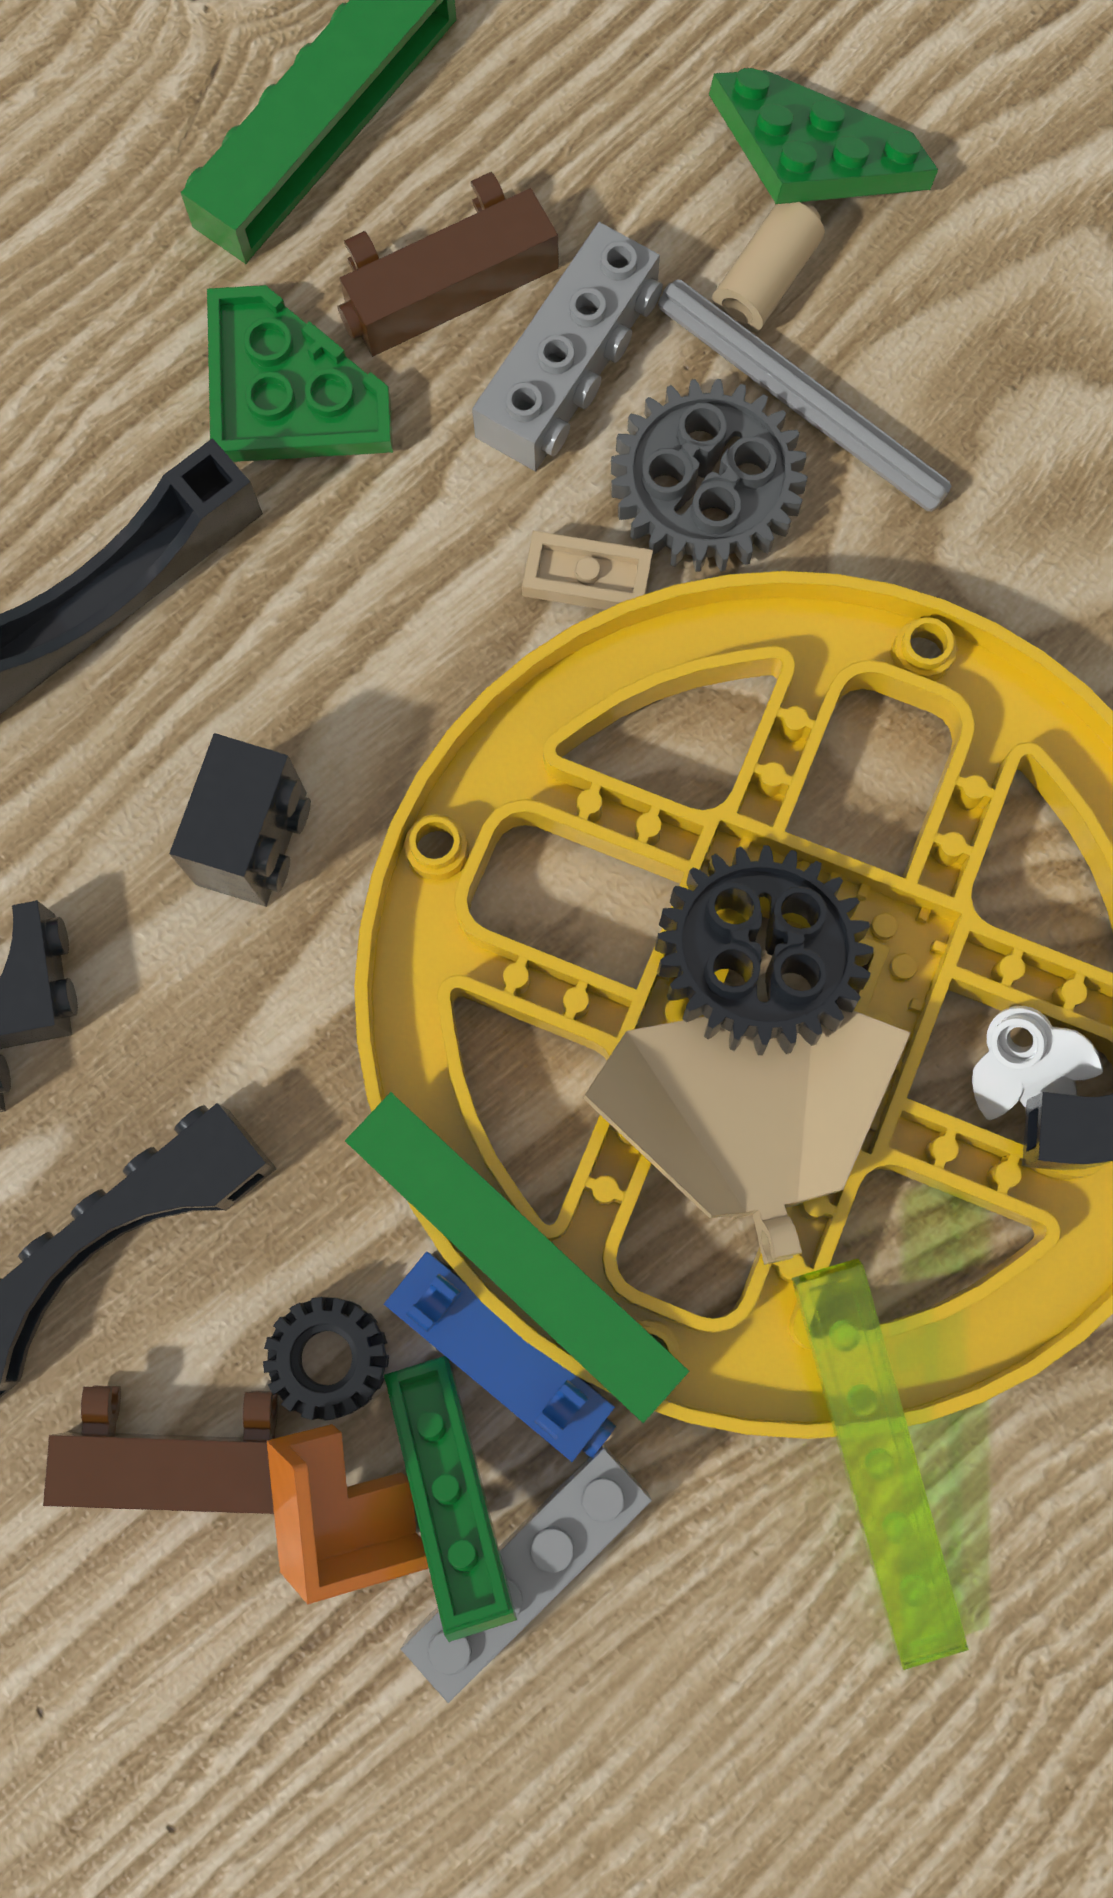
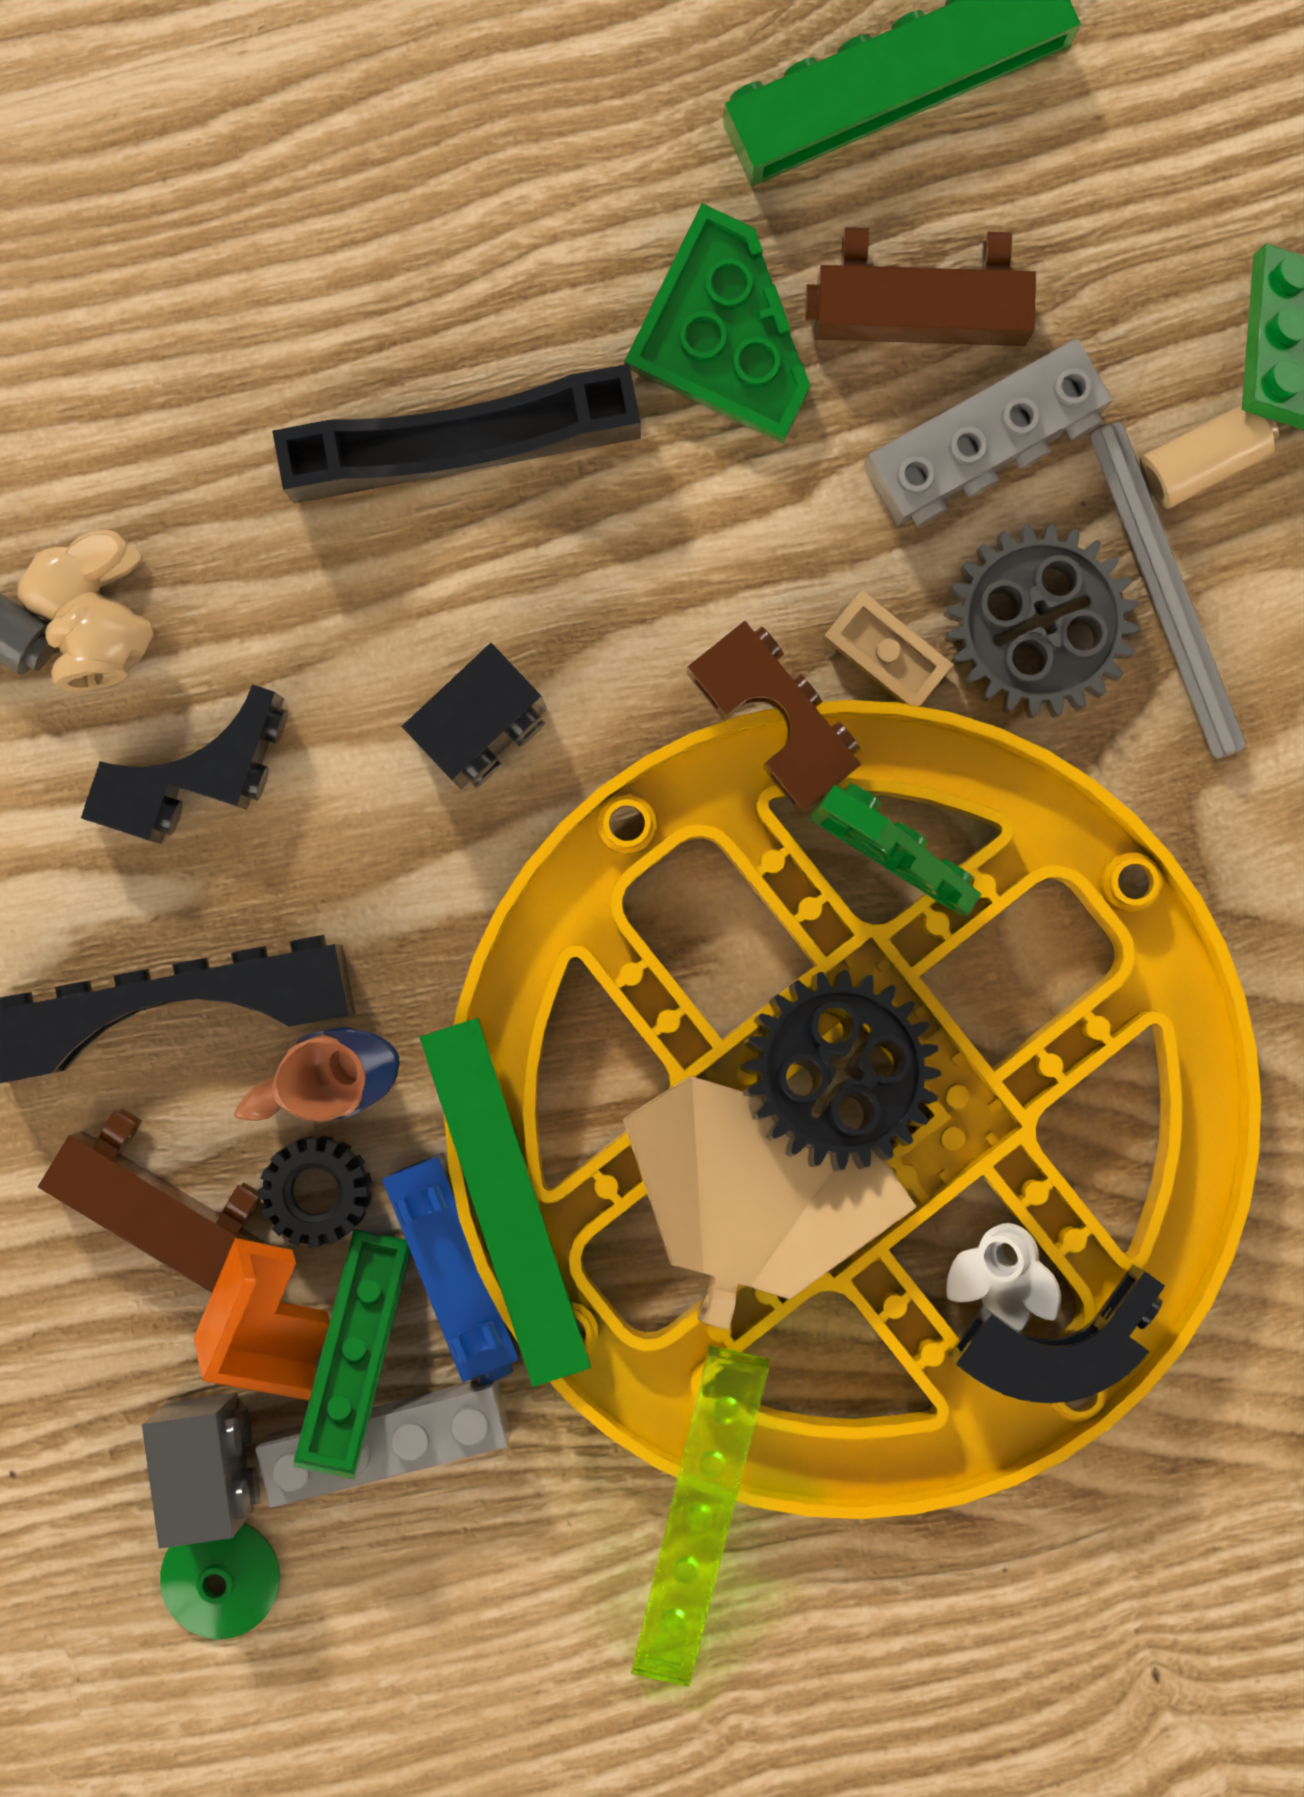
camera: 25 degrees right, 10 degrees up
(277, 1234) = (326, 1077): none -> nougat hair
(356, 1706) = (200, 1469): none -> dark grey brick
(446, 1779) = (250, 1578): none -> green dish
(470, 639) = (747, 671): none -> reddish brown arch
(683, 708) = (855, 820): none -> green plate

